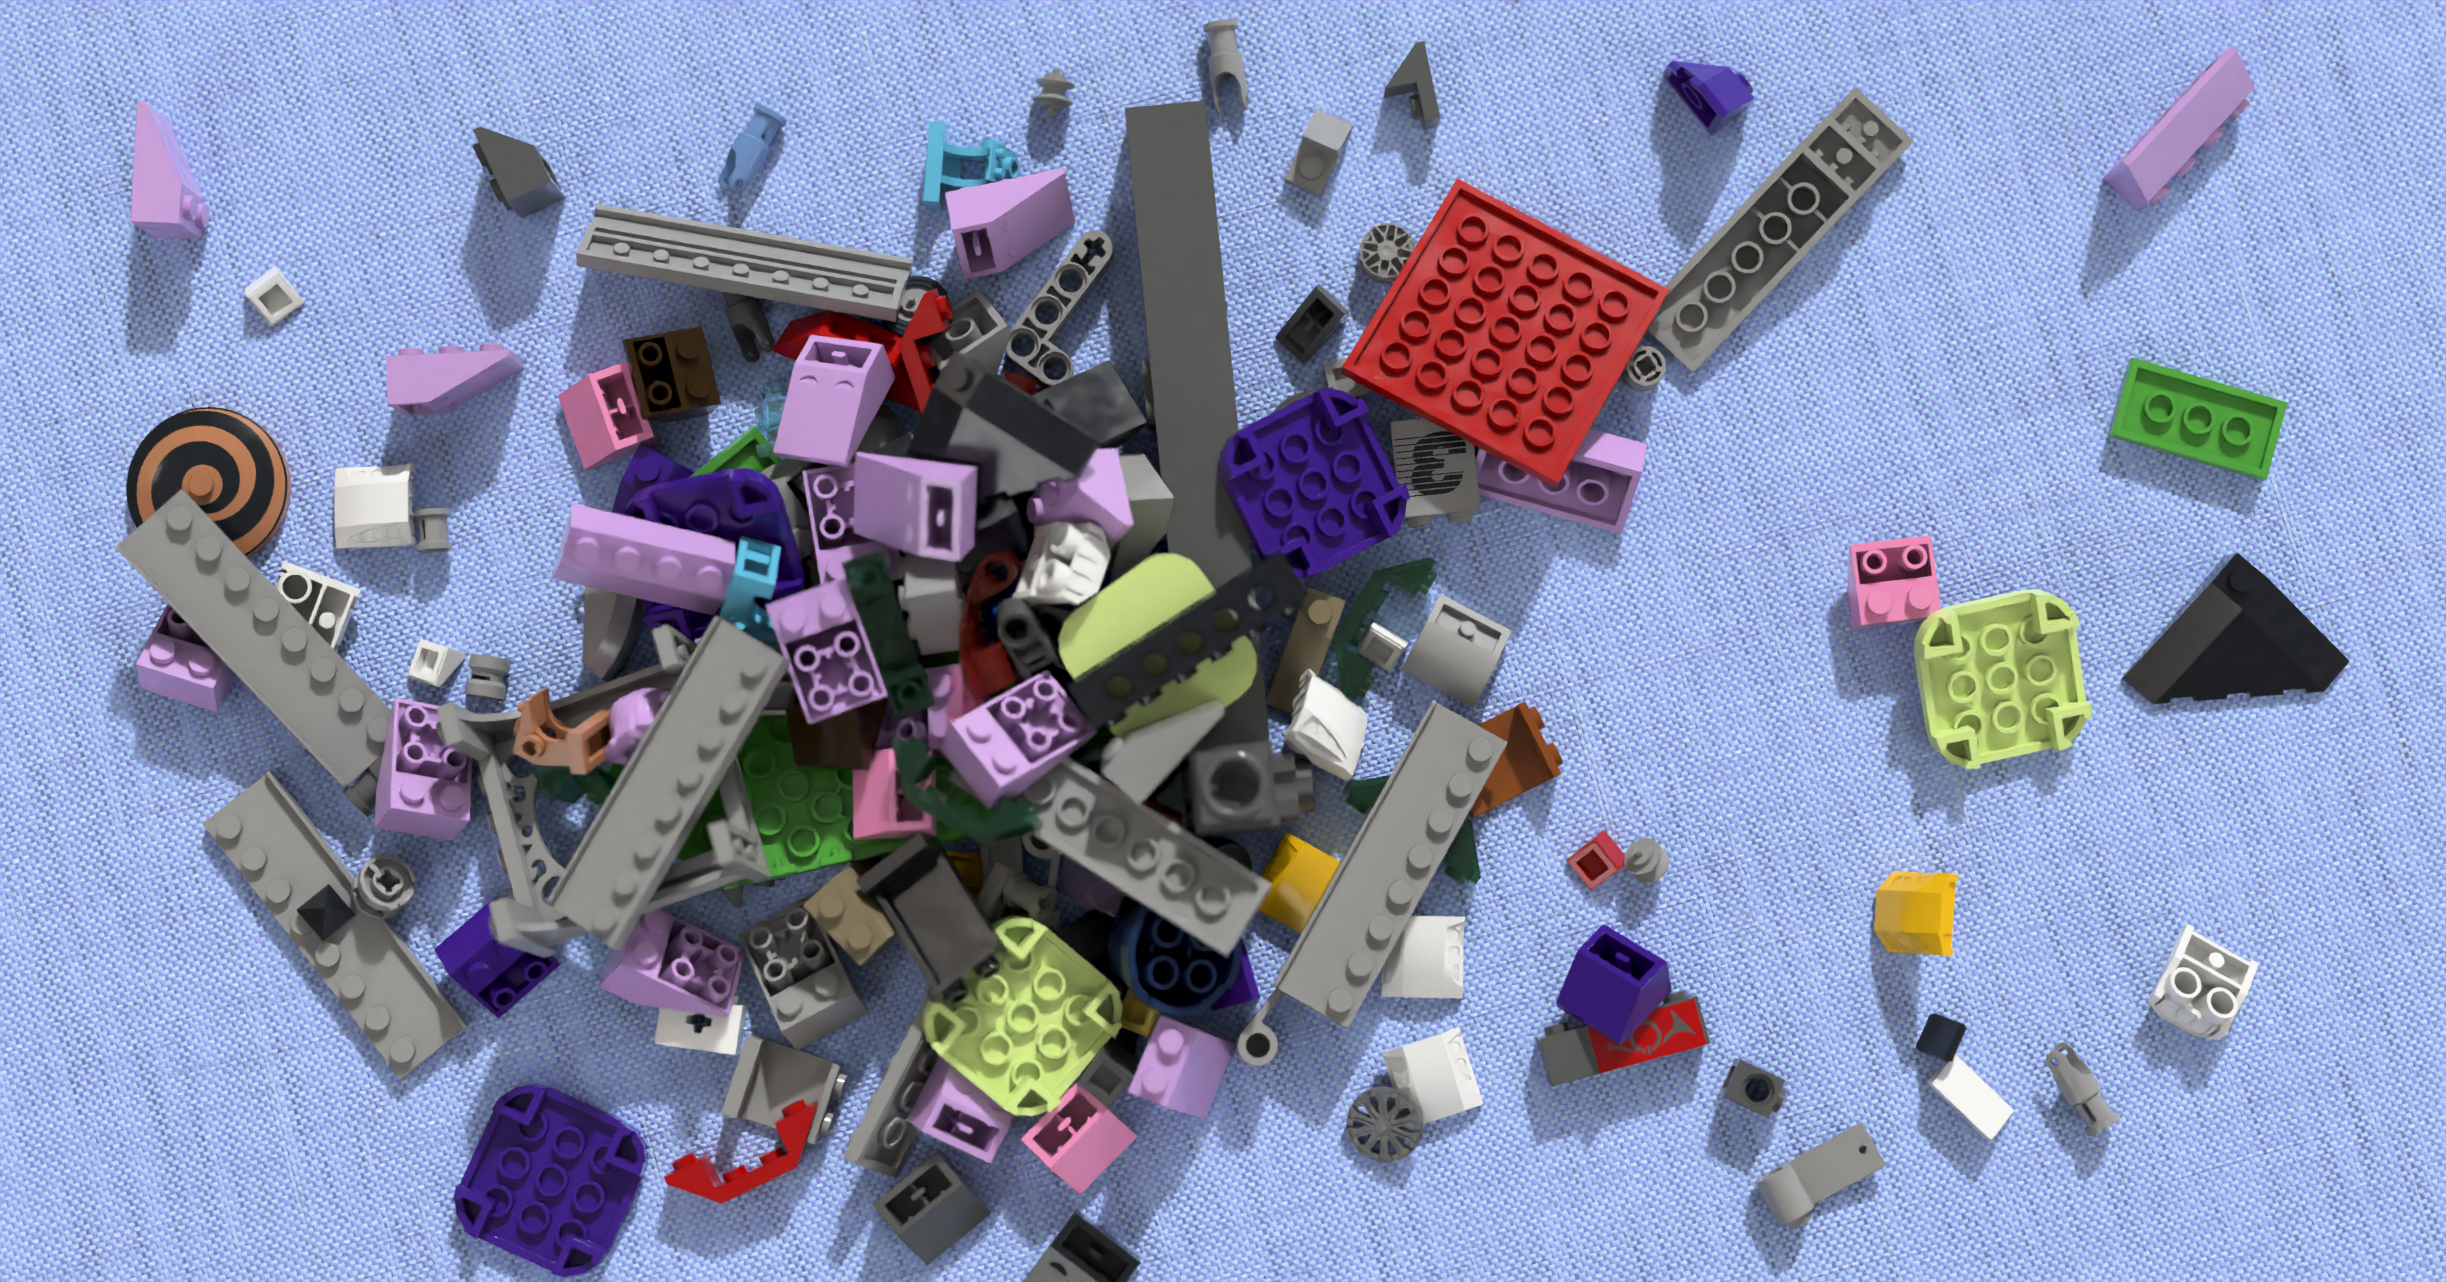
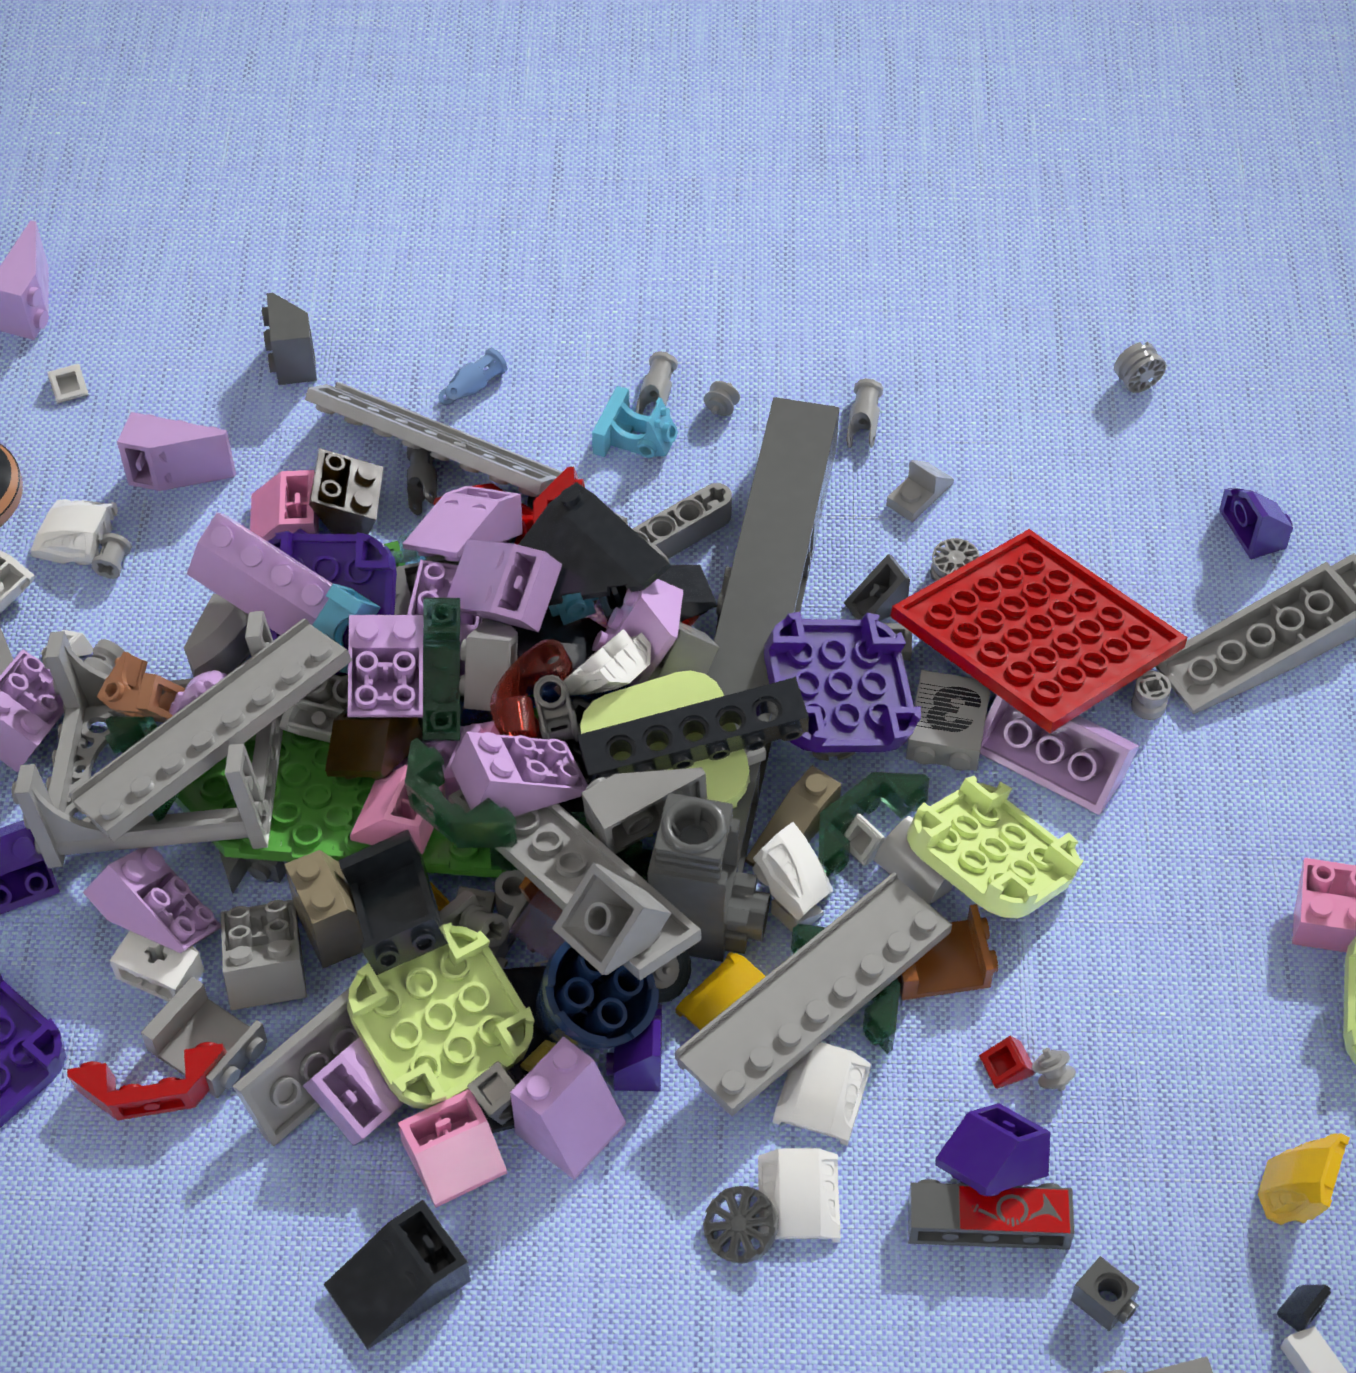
camera: 20 degrees right, 30 degrees down
(932, 1208) = (294, 1169): dark grey slope -> none
(970, 91) = (657, 381): none -> light grey piece
(1007, 220) = (655, 458): lavender slope -> none
(1180, 912) = (610, 919): none -> light grey slope
(1257, 1042) = (646, 1105): light grey door -> none
(1416, 77) = (1011, 458): dark grey slope -> none
(1526, 631) = (993, 850): none -> yellowish green tile

